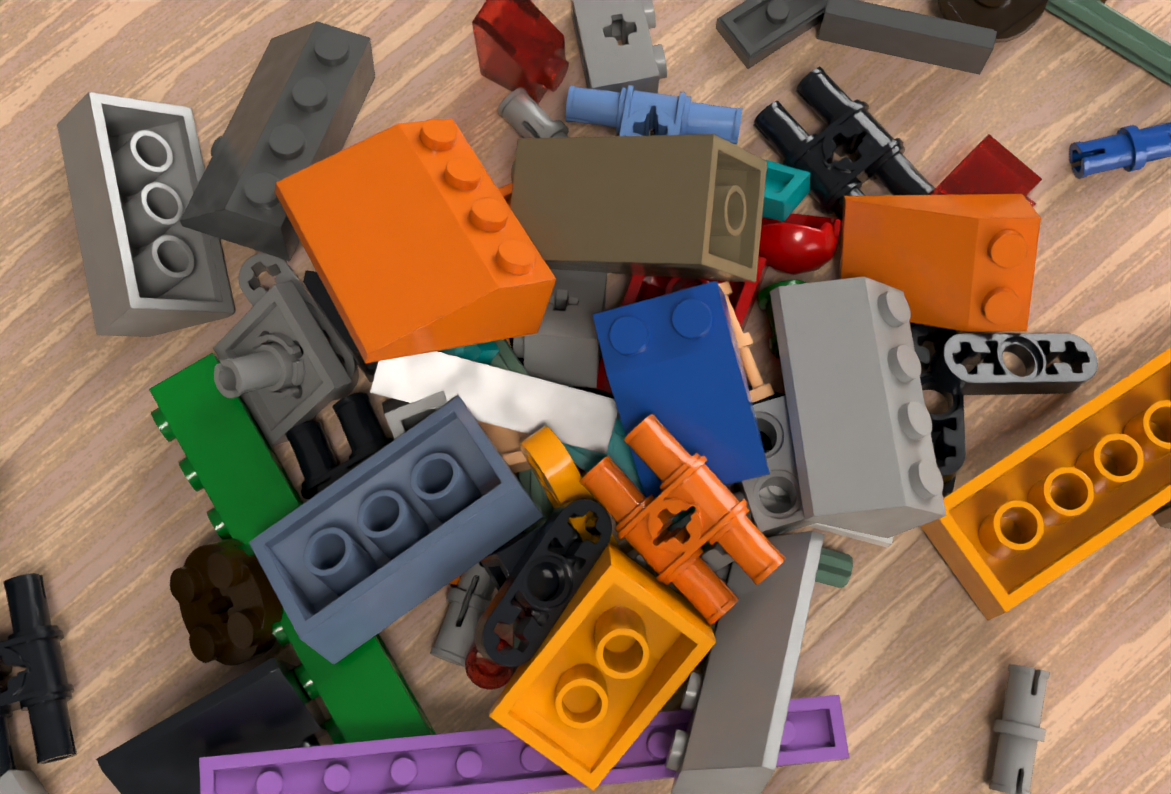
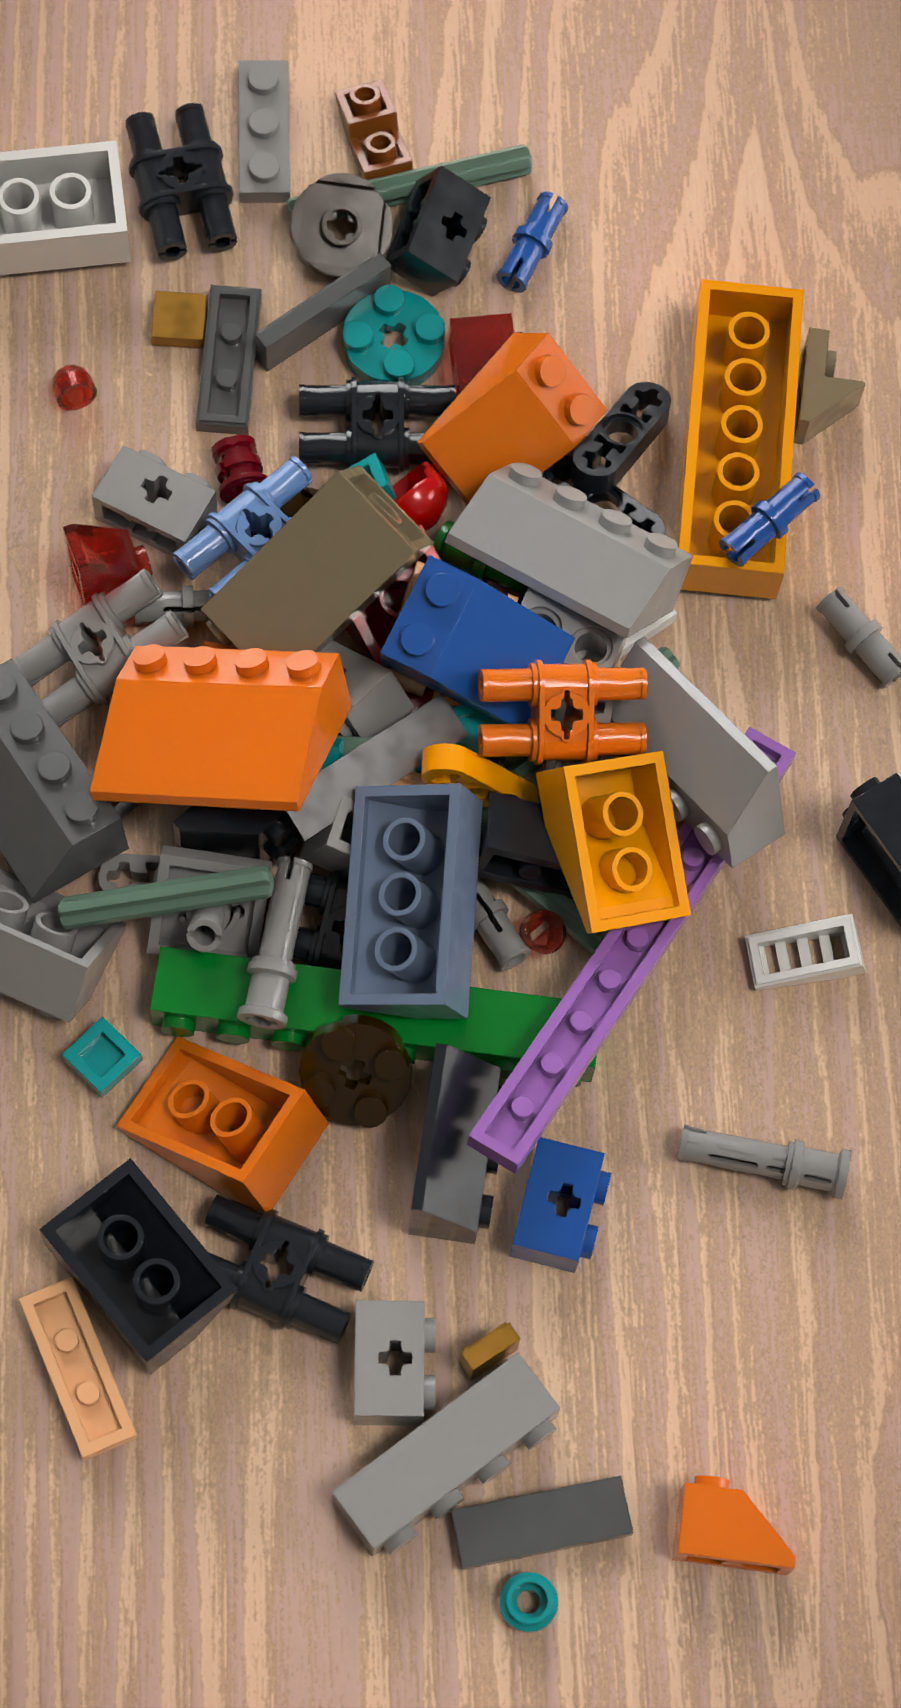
camera: 60 degrees left, 5 degrees down
(95, 385) = (102, 1057): none -> teal plate
(104, 532) = (225, 1123): none -> orange slope
(248, 324) = (166, 897): none -> sand green axle
(250, 459) = (273, 967): none -> light grey pin
(446, 89) = (77, 641): none -> light grey pin
(570, 578) = (525, 854): black beam -> none
(707, 77) = (236, 465): none -> dark red bush
(945, 80) = (393, 311): none -> teal plate
(1044, 557) = (769, 519): none -> blue pin
(1090, 46) = (438, 231): none -> black brick

